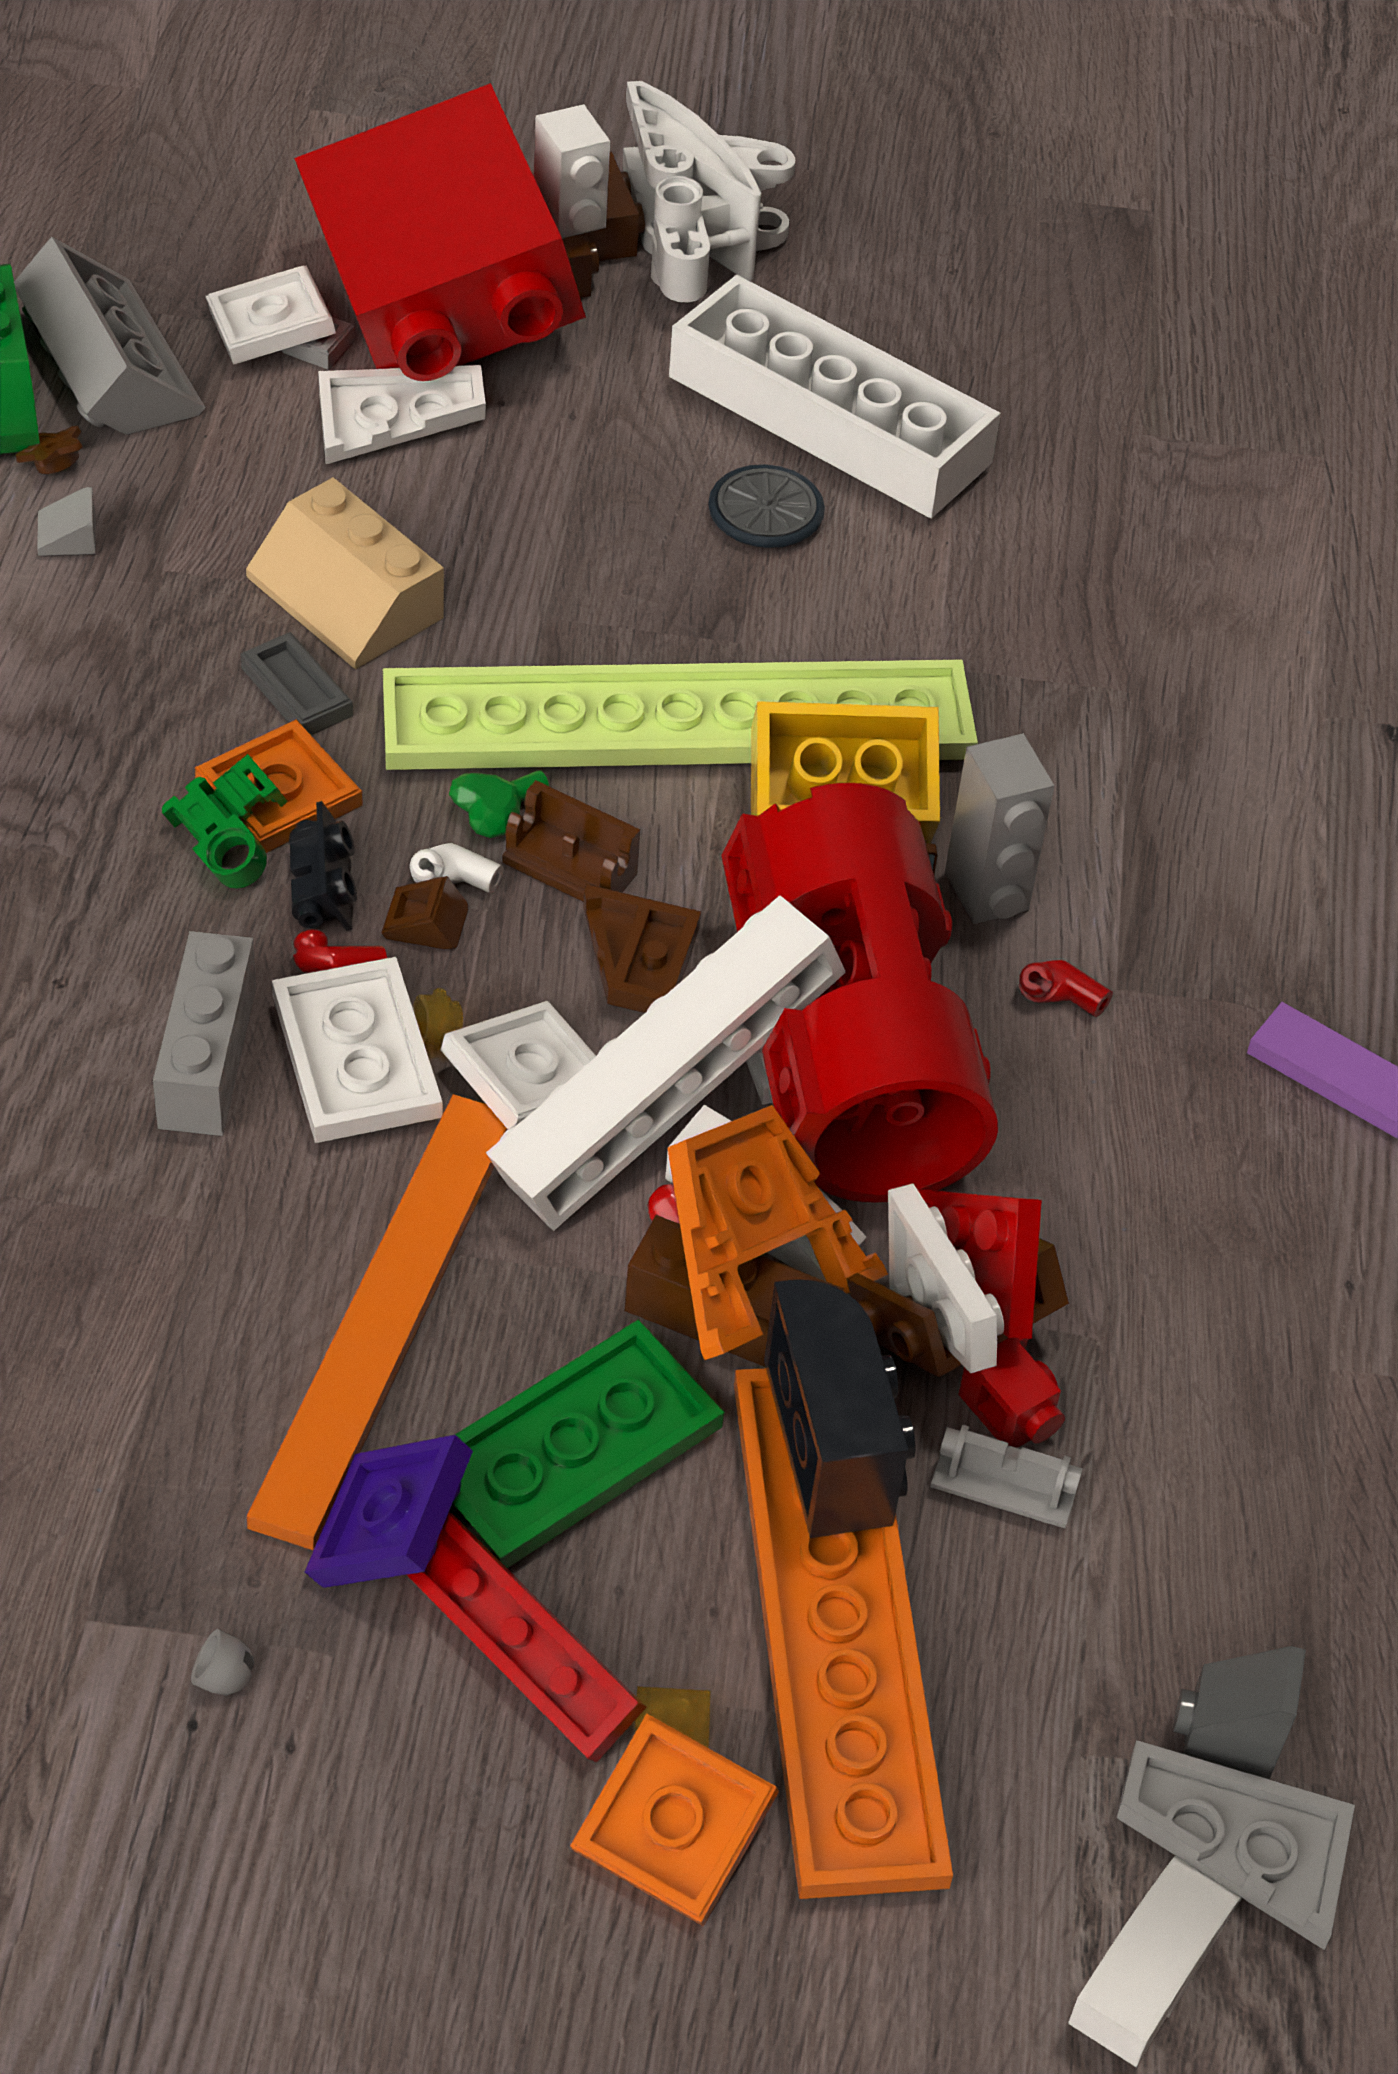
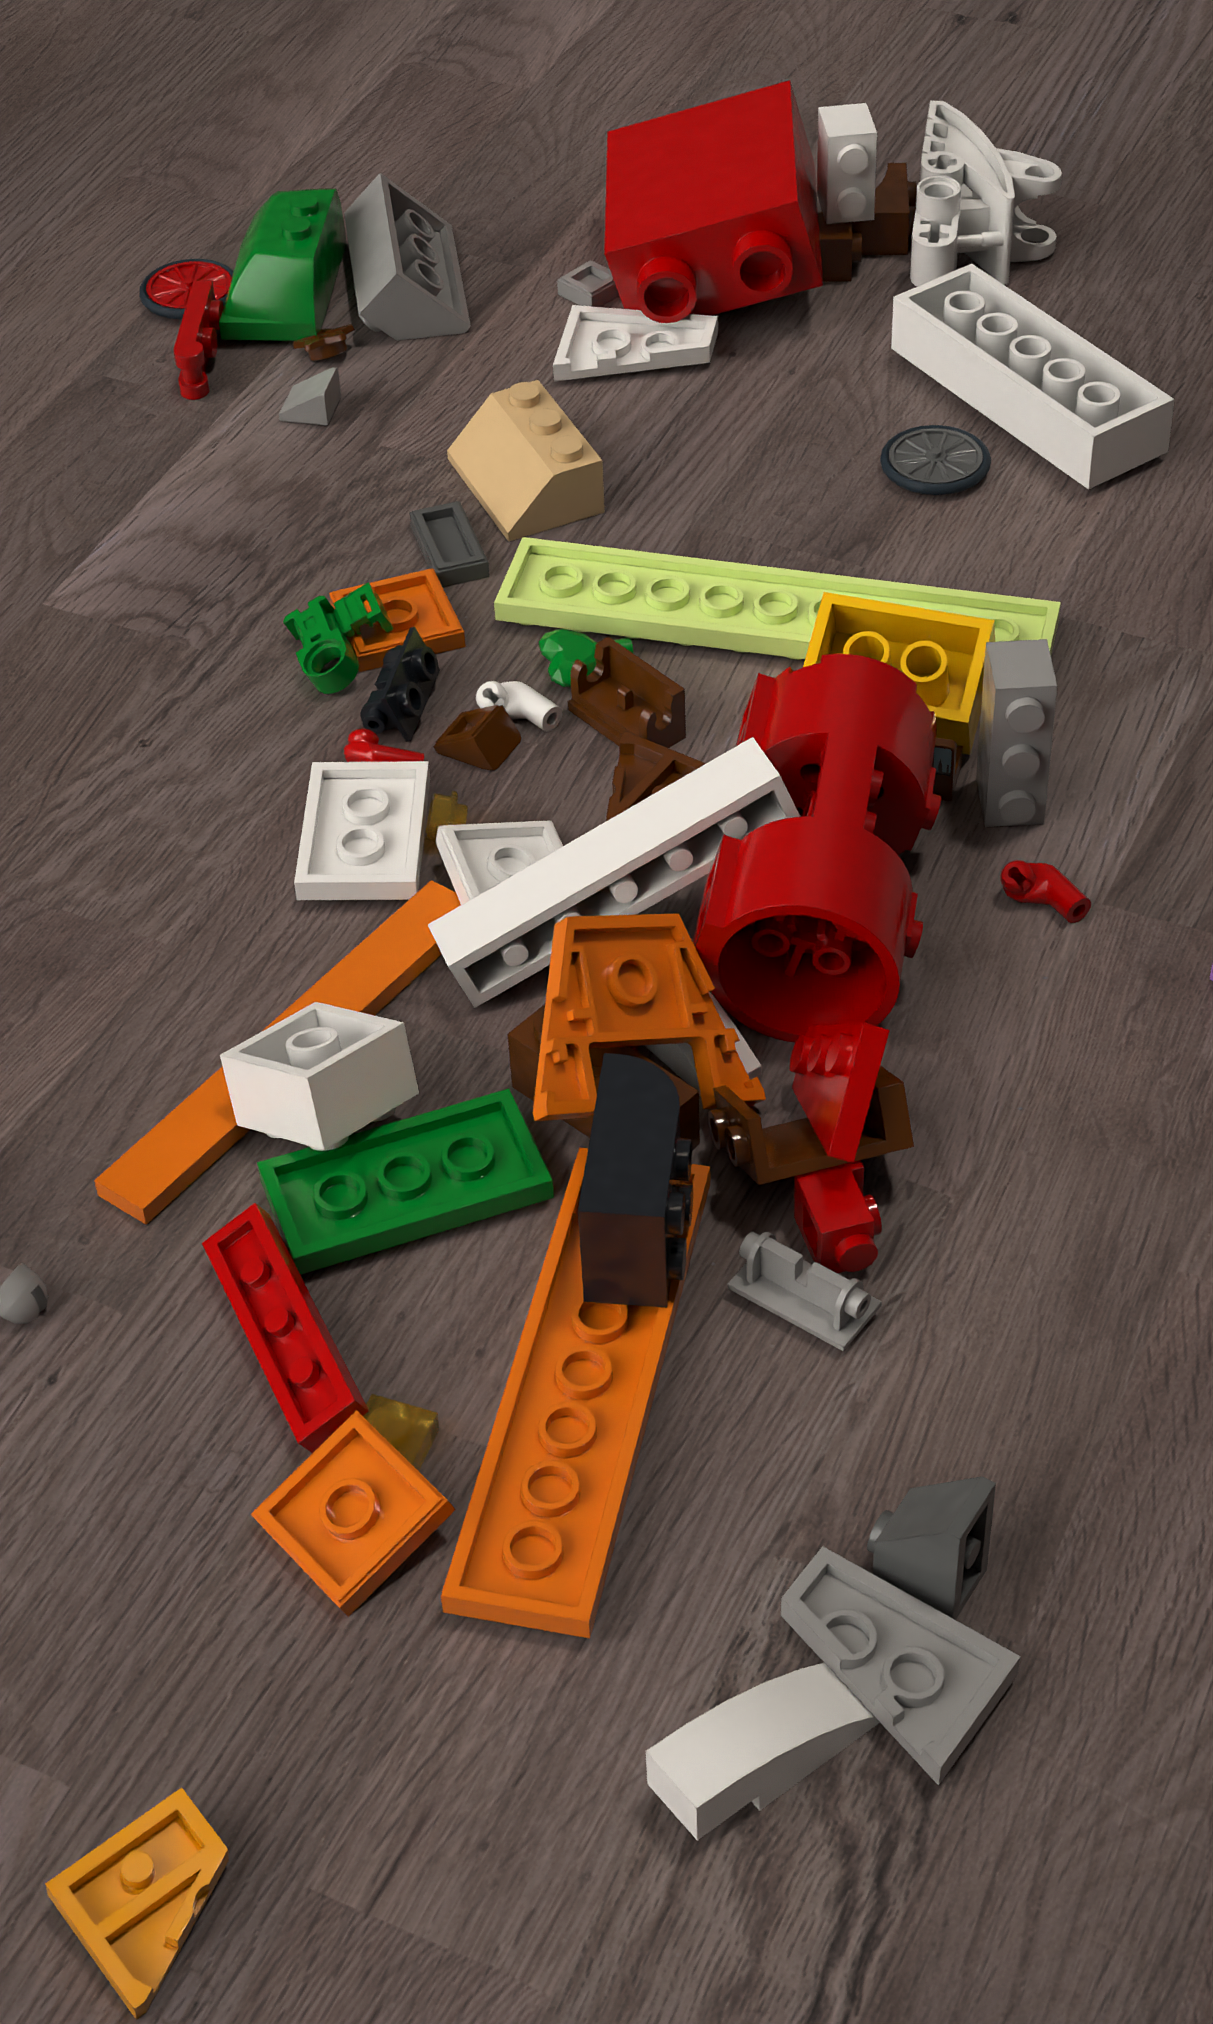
camera: 25 degrees right, 5 degrees down
(205, 1033) = (235, 794): light grey brick -> none
(270, 314) = (553, 259): white tile -> none
(389, 1512) = (209, 1196): dark purple plate -> none
(451, 1350) = (320, 1075): none -> white brick
(941, 1279) = (788, 1093): white wing -> none

